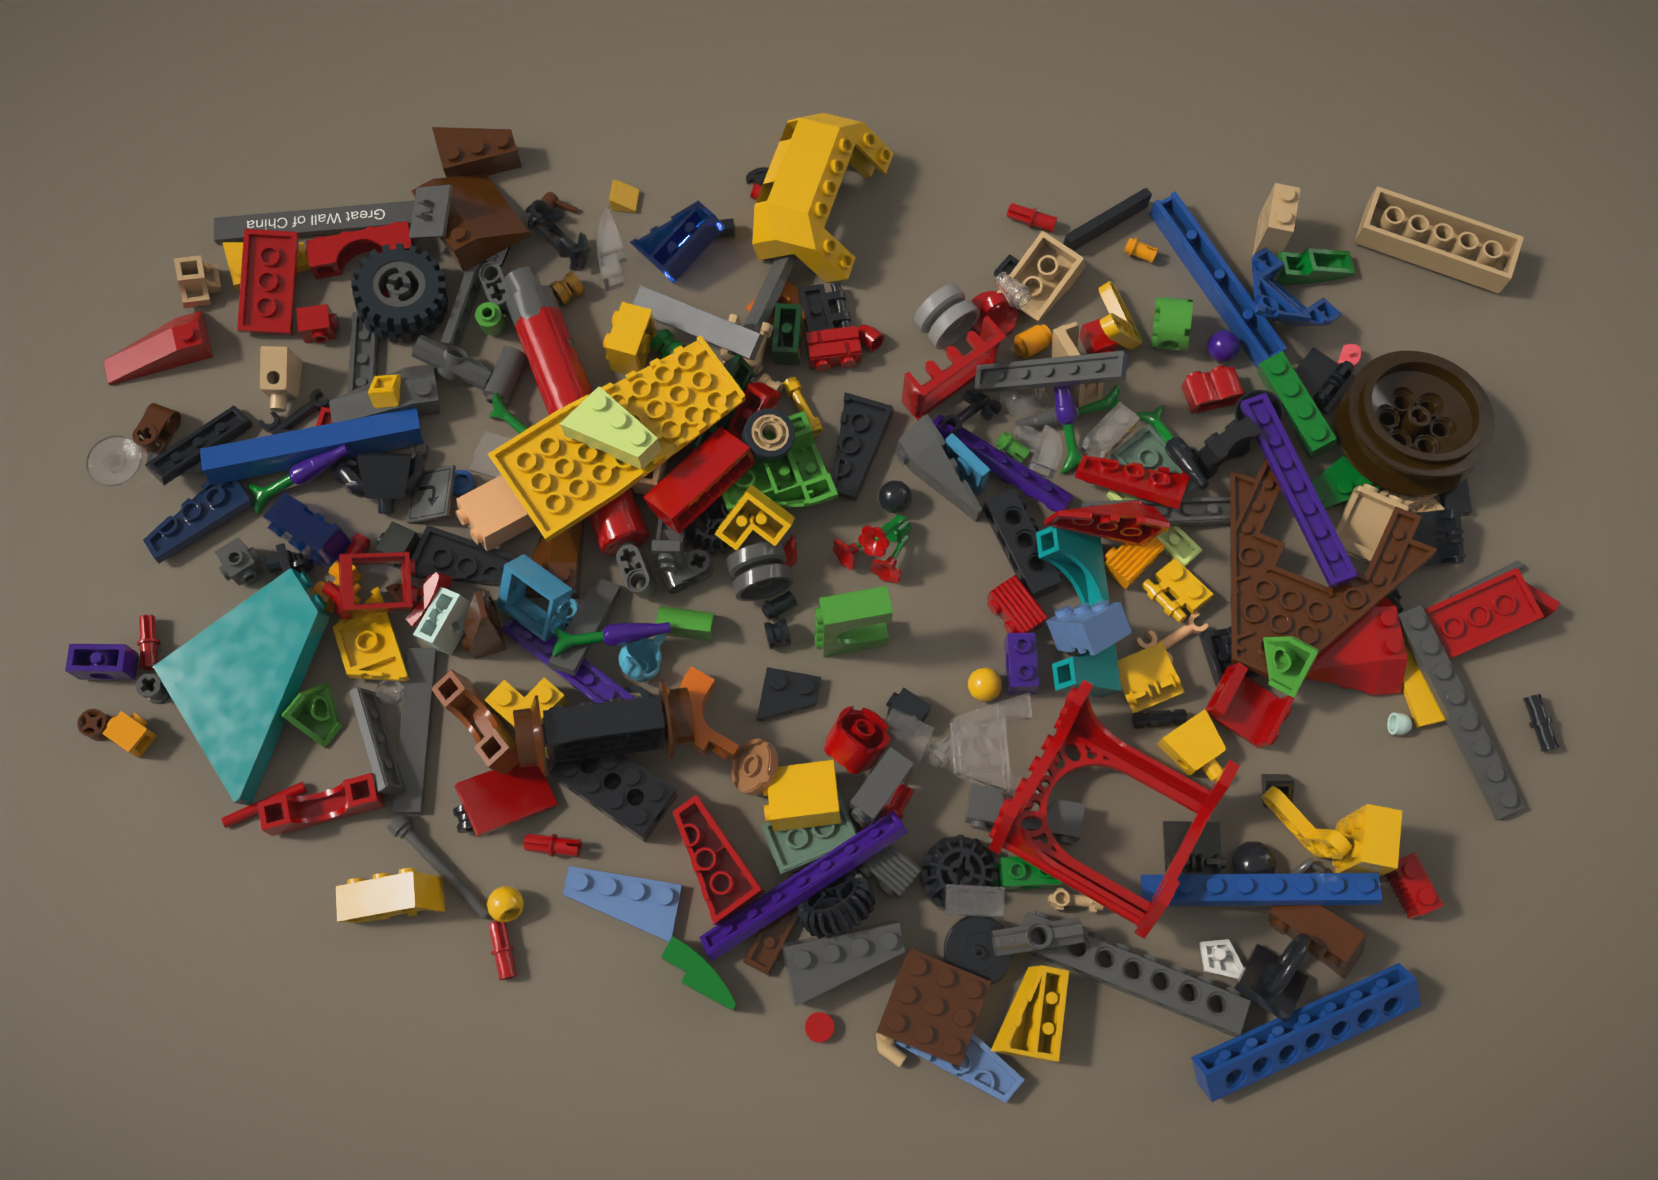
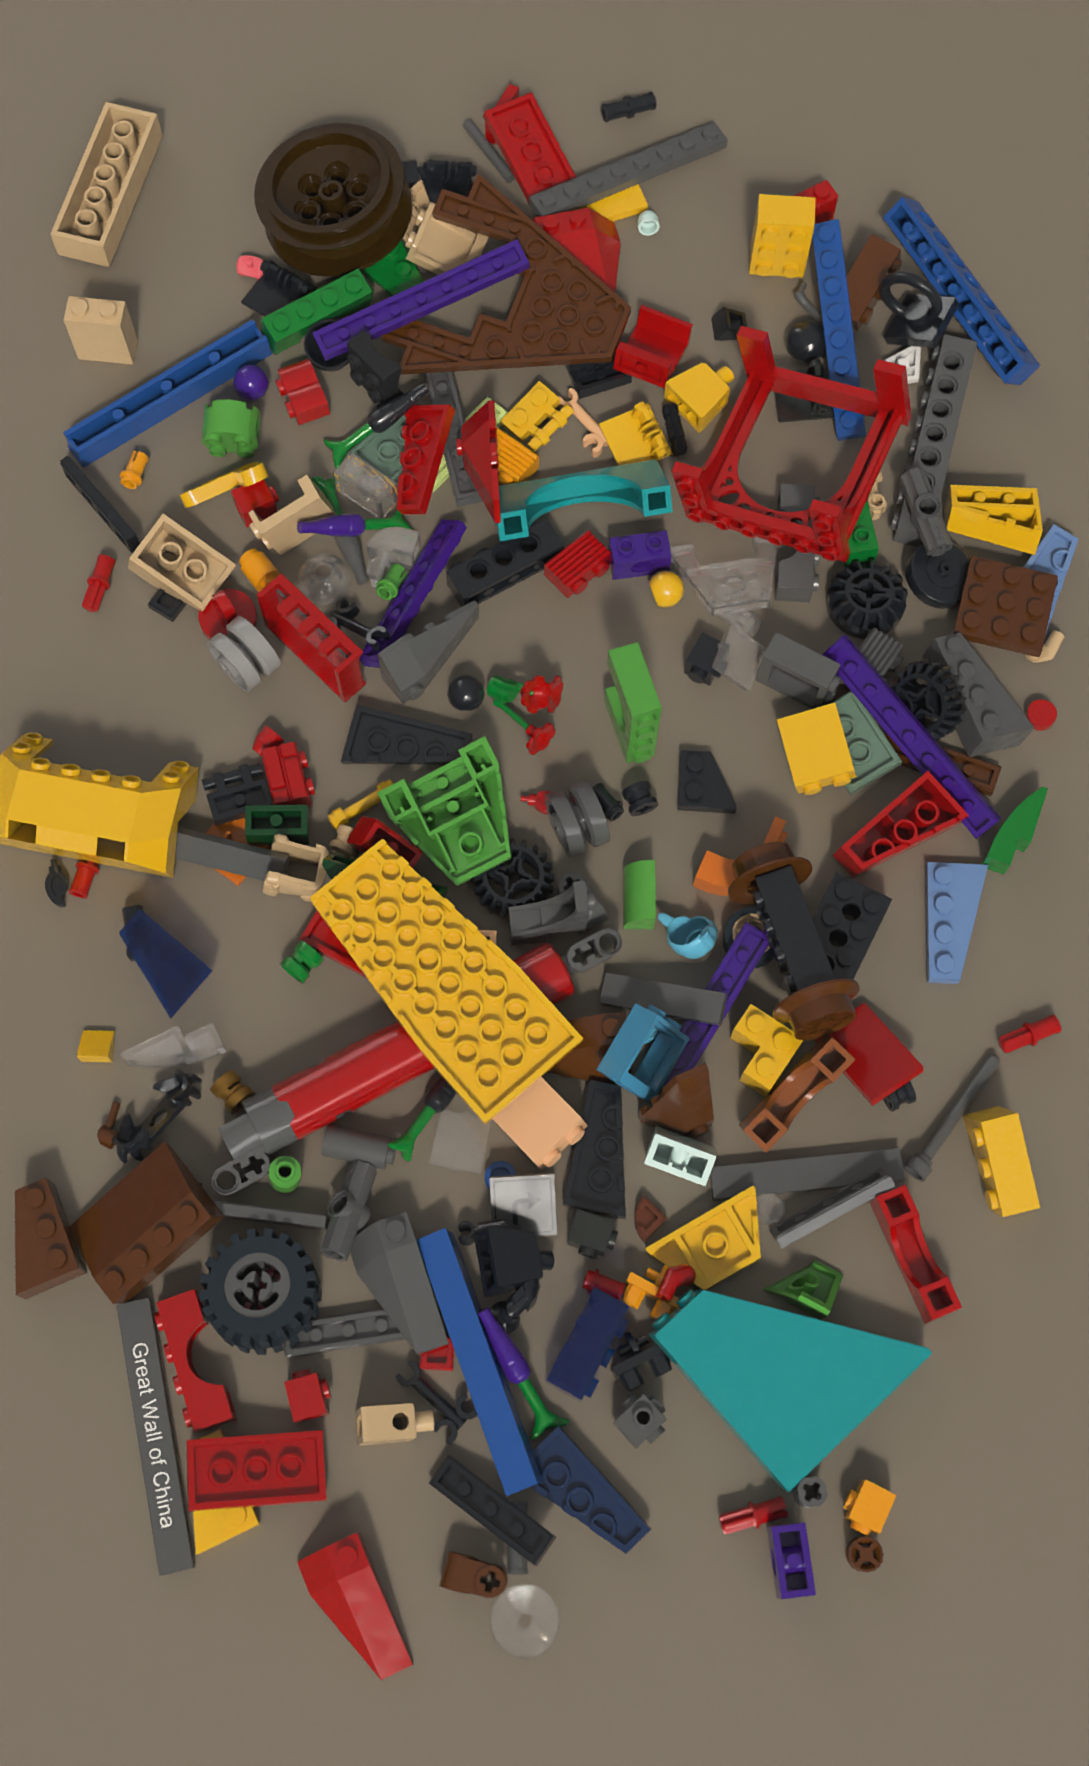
camera: 95 degrees left, 0 degrees up
(196, 280) = (259, 1573): tan brick -> none
(252, 809) = (920, 1329): red bar -> none
(385, 391) = (402, 1276): yellow slope -> none
(407, 569) = (663, 1263): red window -> none
(428, 591) = (650, 1177): red slope -> none
(430, 211) = (152, 1261): dark grey piece -> none
(505, 904) = (982, 1036): yellow piece -> none
(552, 845) = (910, 1000): red axle -> none
(612, 429) = (446, 973): yellowish green wedge -> none
(612, 635) = (677, 959): dark purple piece -> none
(630, 338) = (302, 999): yellow brick -> none
(700, 323) = (276, 923): tile -> none
(700, 479) = (481, 887): red brick -> none
(754, 767) = (794, 798): medium nougat tile -> none
(756, 513) = (523, 818): yellow brick -> none
(774, 422) = (421, 803): wheel -> none
(857, 739) = (750, 699): red brick -> none
(969, 465) = (430, 610): dark azure tile -> none
(974, 901) = (898, 573): clear tile -> none
(1014, 291) = (205, 585): clear cone -> none
(1051, 372) = (318, 522): dark grey plate -> none
(1088, 627) = (604, 479): medium blue wedge -> none
(1277, 303) = (201, 327): blue wedge -> none
(1288, 662) = (616, 300): bright green slope -> none
(1314, 266) = (144, 304): green slope -> none
(1319, 842) = (778, 289): yellow beam -> none

